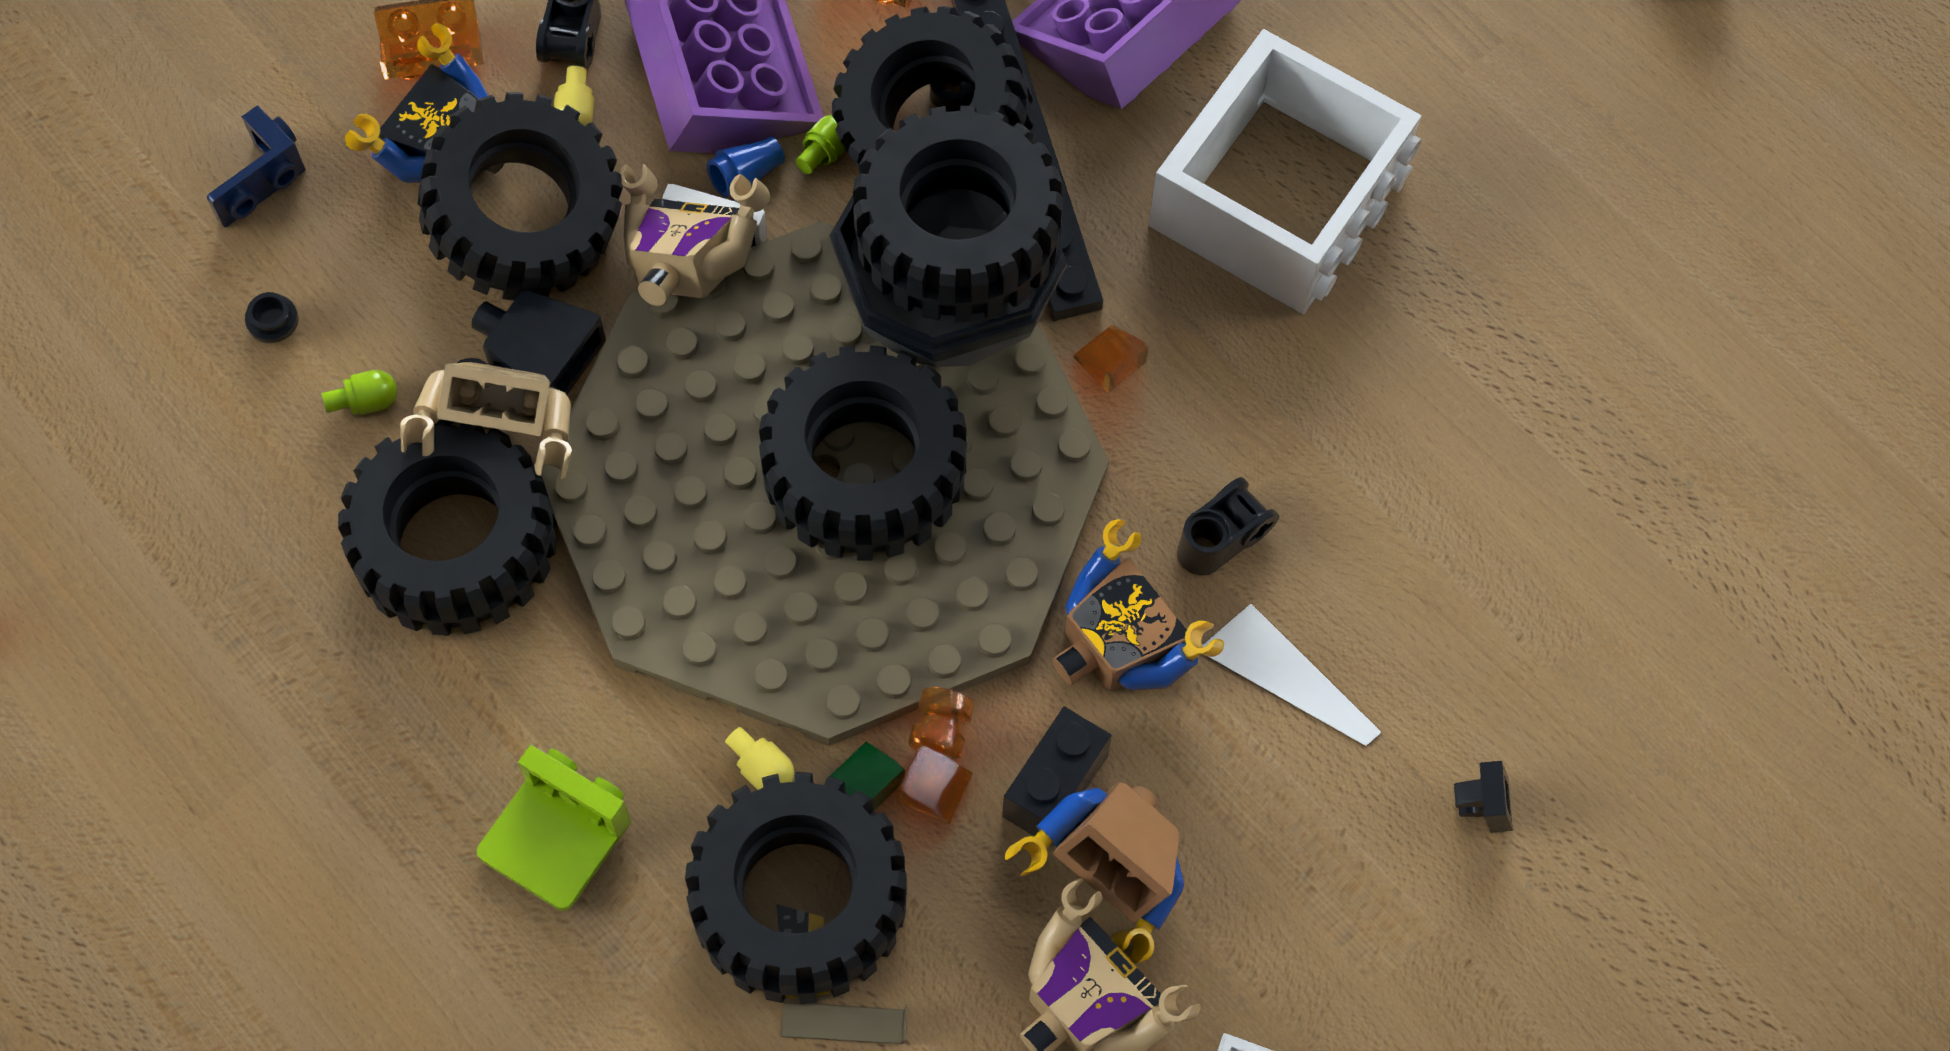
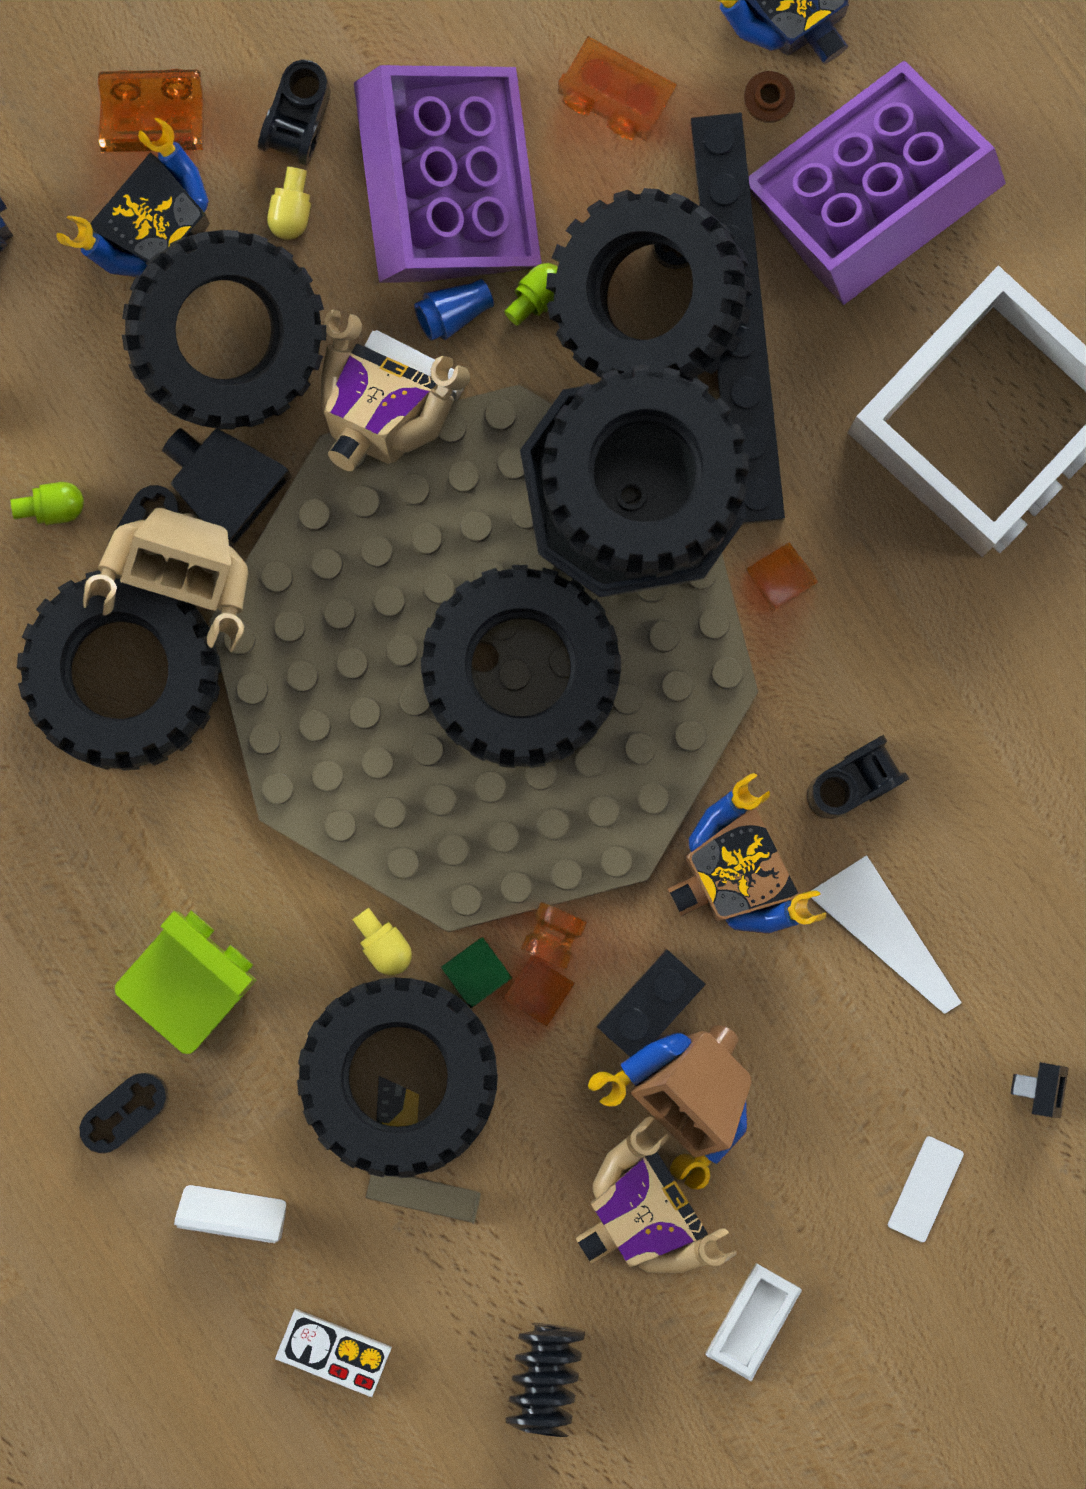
camera: 10 degrees right, 20 degrees up
(510, 992) = (115, 1103): none -> black beam
(1387, 929) = (925, 1189): none -> white sticker

